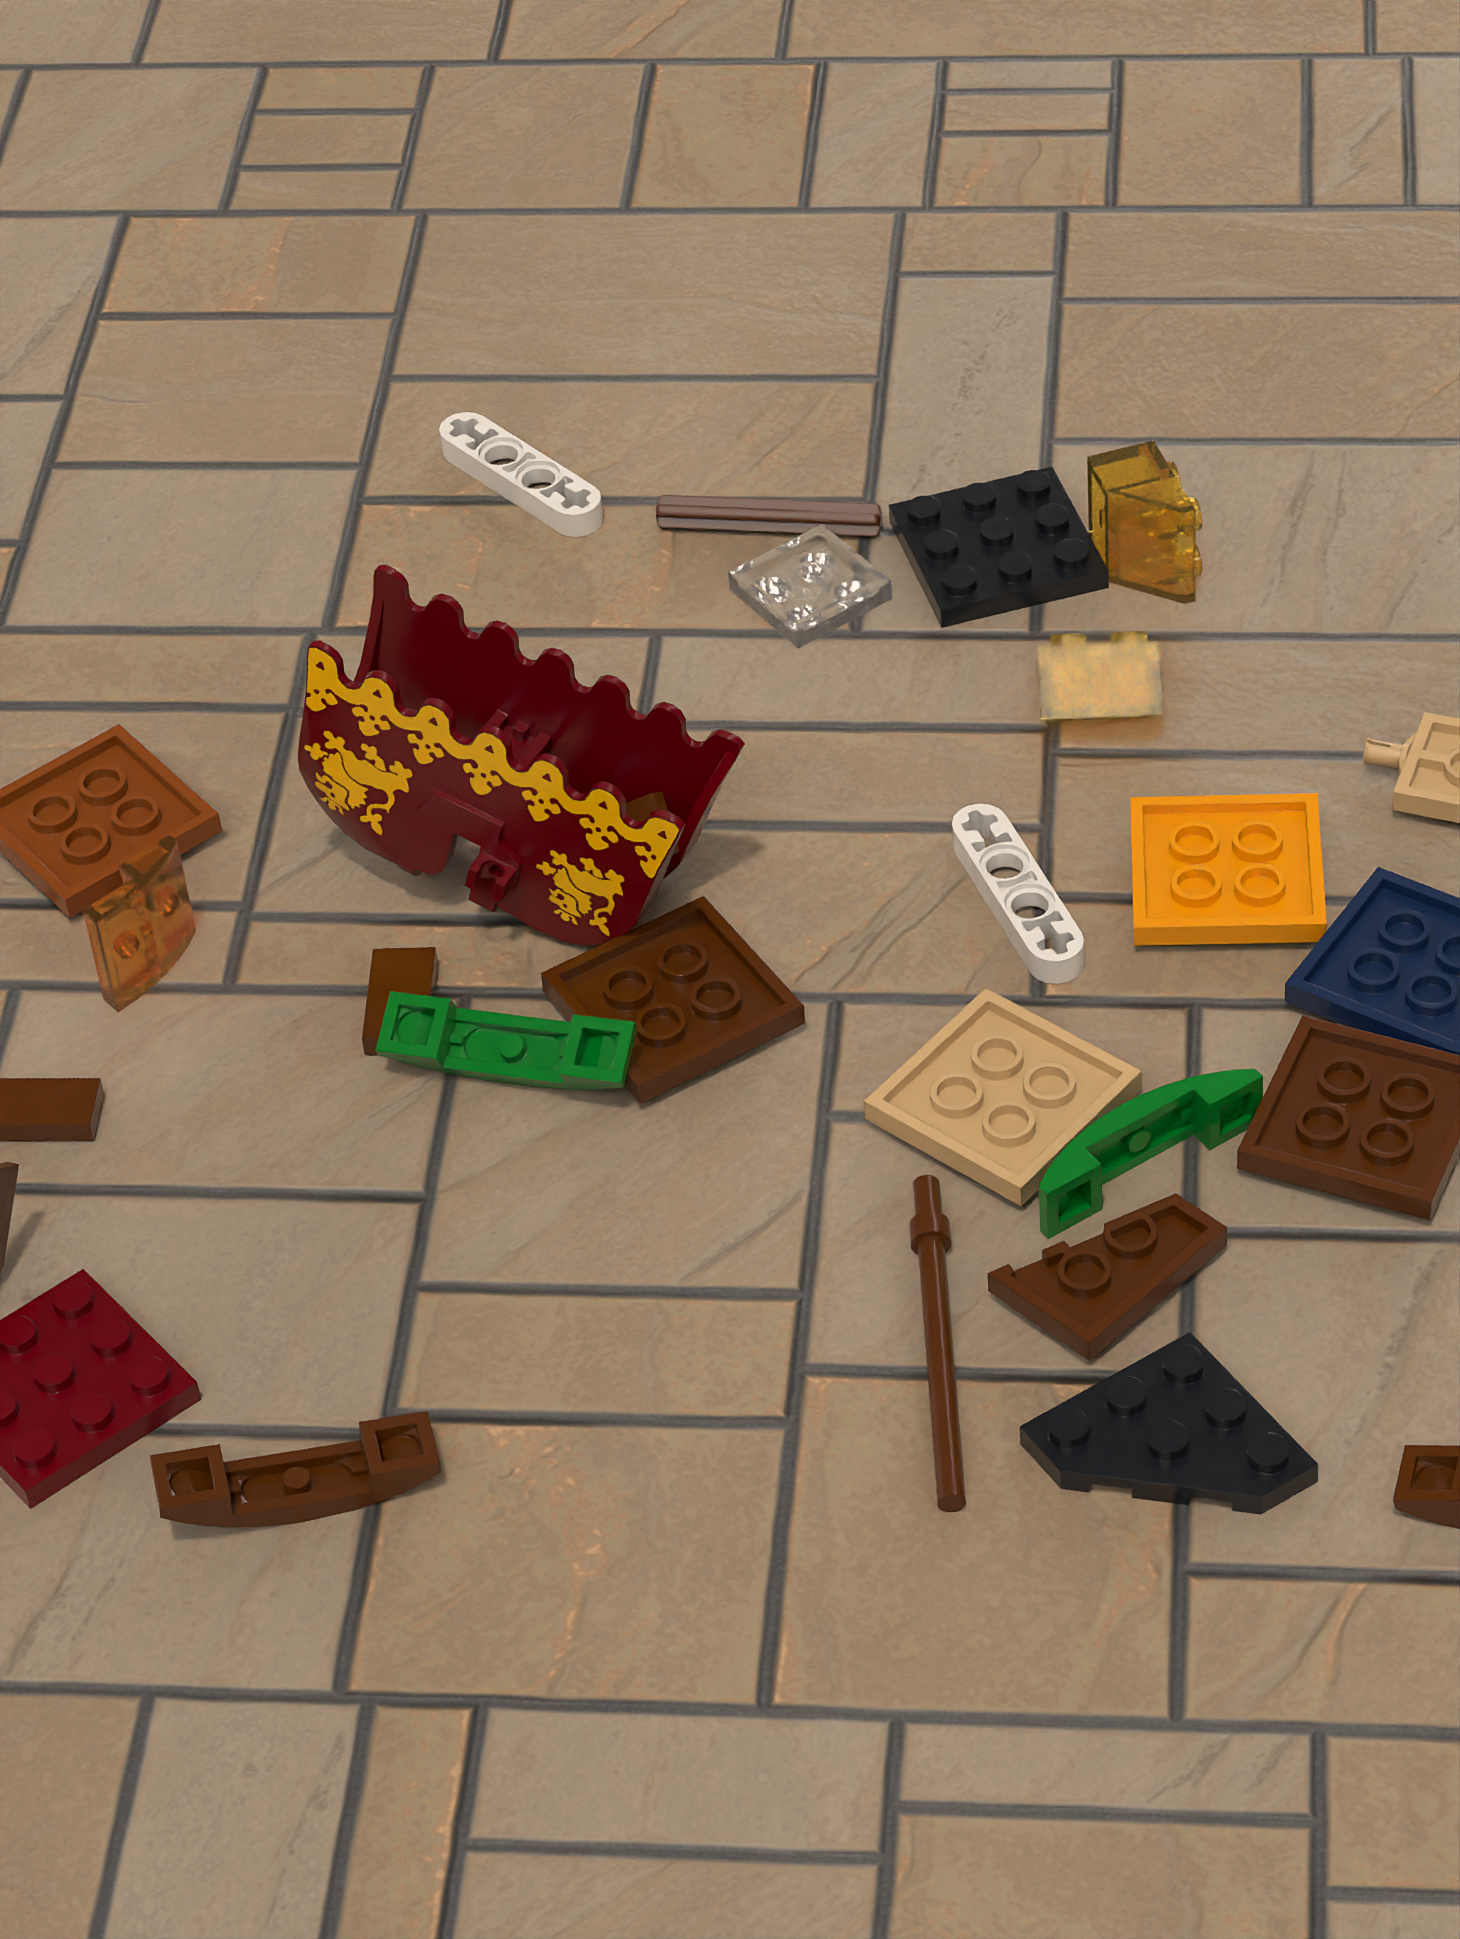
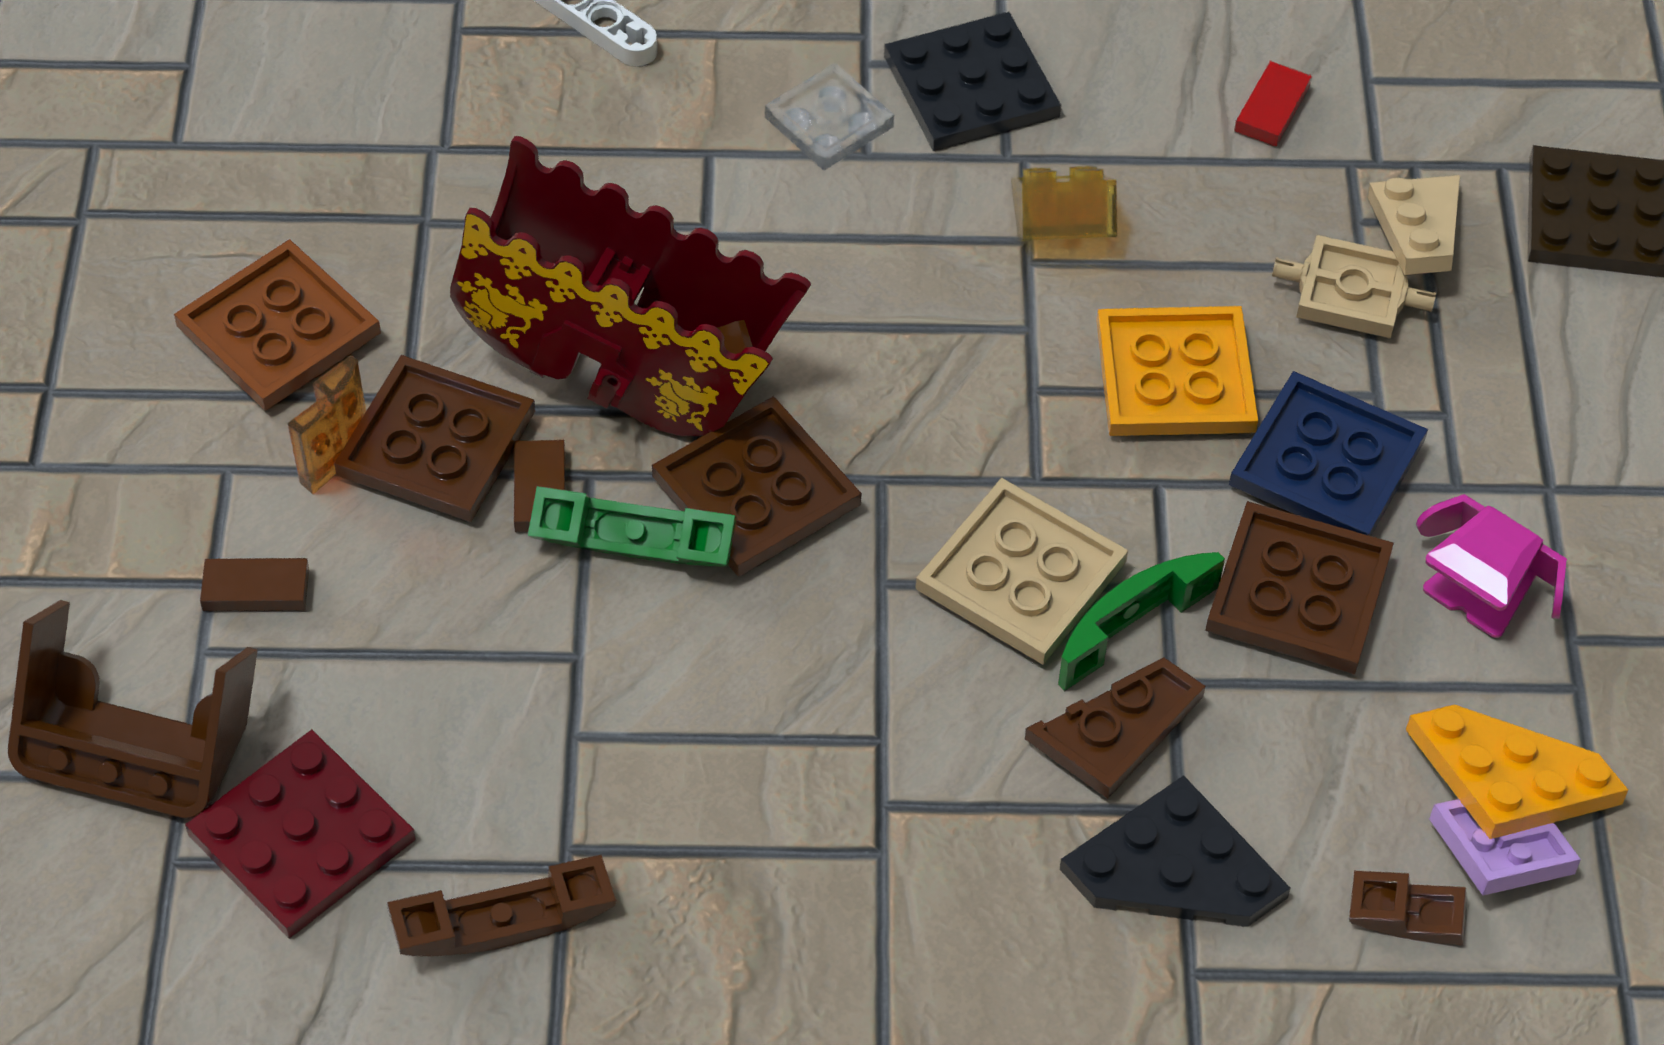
camera: 10 degrees left, 10 degrees up
(274, 945) = (435, 438): none -> reddish brown plate
(767, 515) = (789, 51): axle -> none
(930, 1241) = (977, 695): reddish brown bar -> none
(1024, 890) = (1020, 387): white beam -> none
(1144, 522) = (1090, 67): clear yellow slope -> none
(1385, 567) = (1273, 103): none -> red tile

